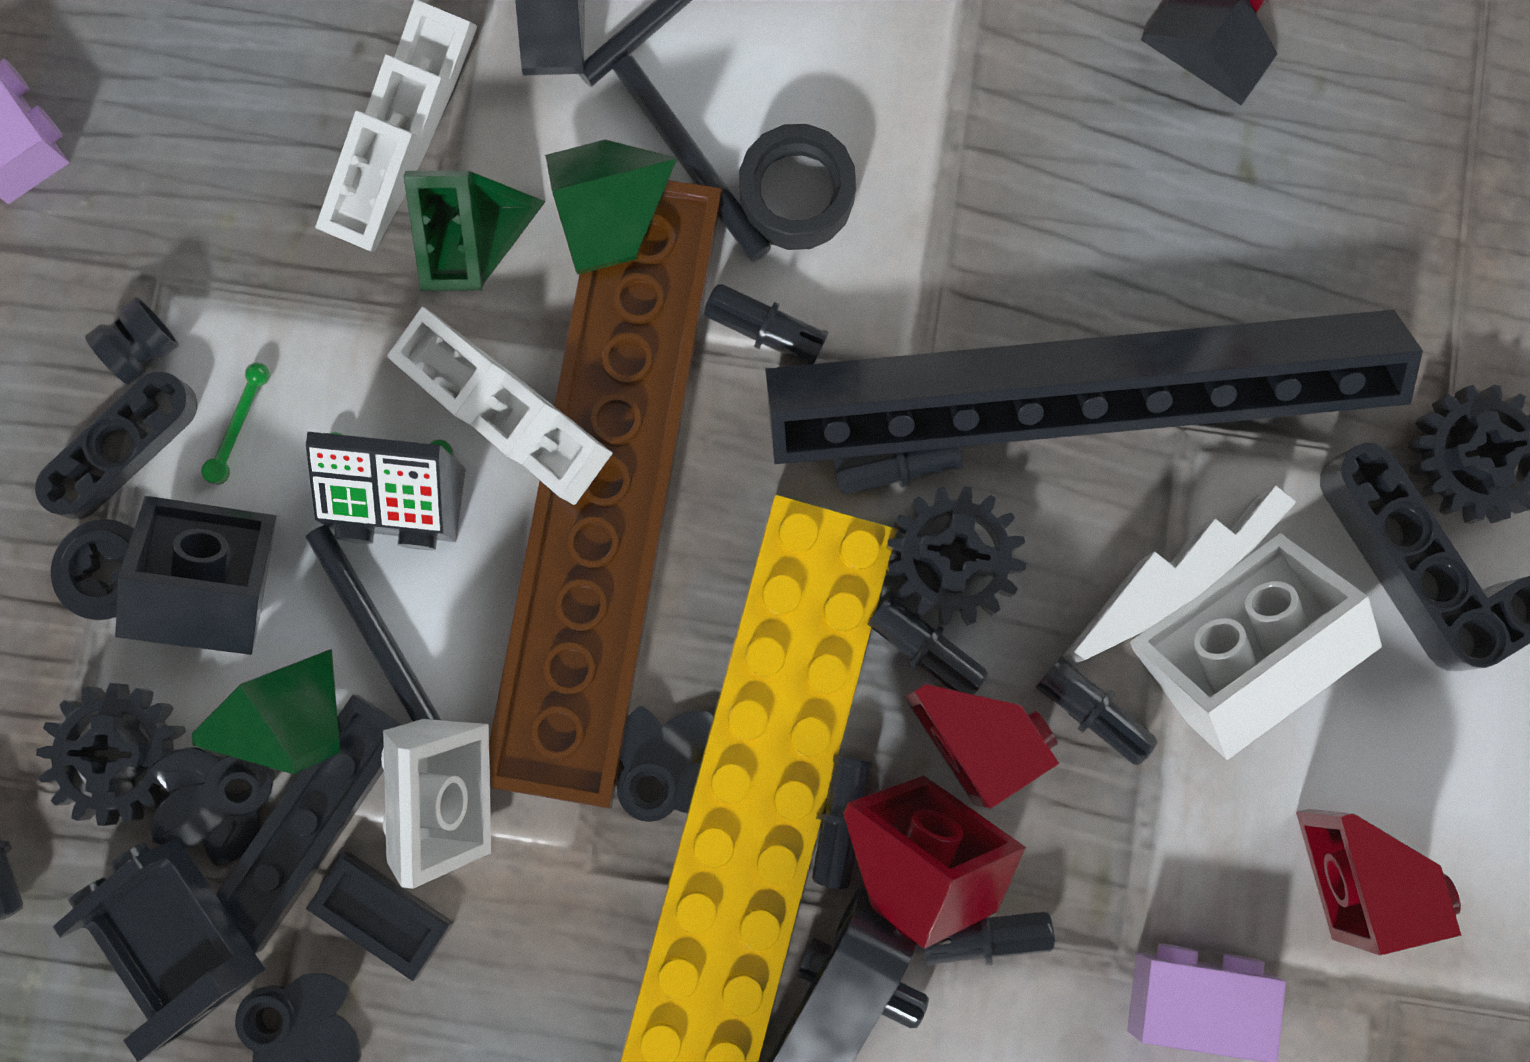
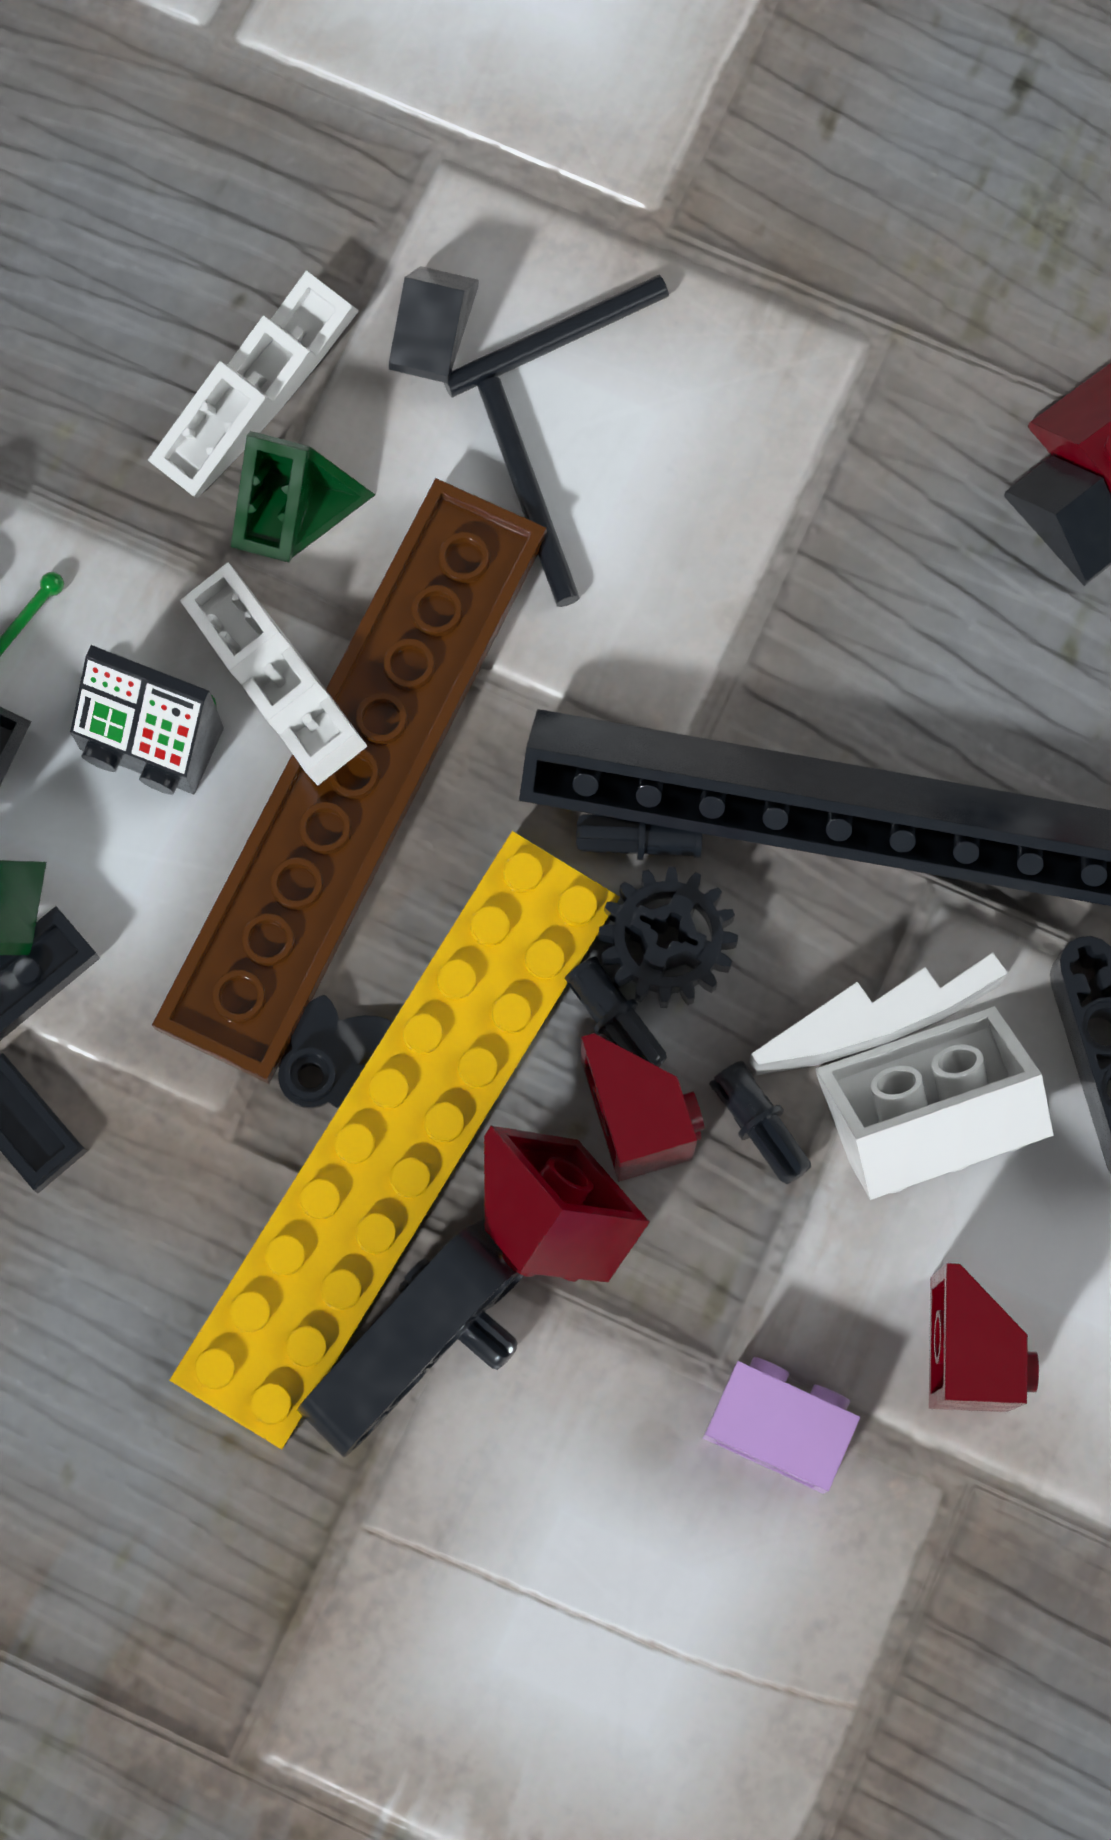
camera: 15 degrees right, 5 degrees down
(371, 625) = (102, 895): black piece -> none
(435, 798) = (109, 1018): white slope -> none
(606, 199) = (431, 508): dark green slope -> none
(765, 324) = (551, 668): black axle -> none
(797, 141) = (632, 502): black tyre -> none
(835, 849) = (466, 1189): black axle -> none
(996, 938) = (591, 1305): black axle -> none

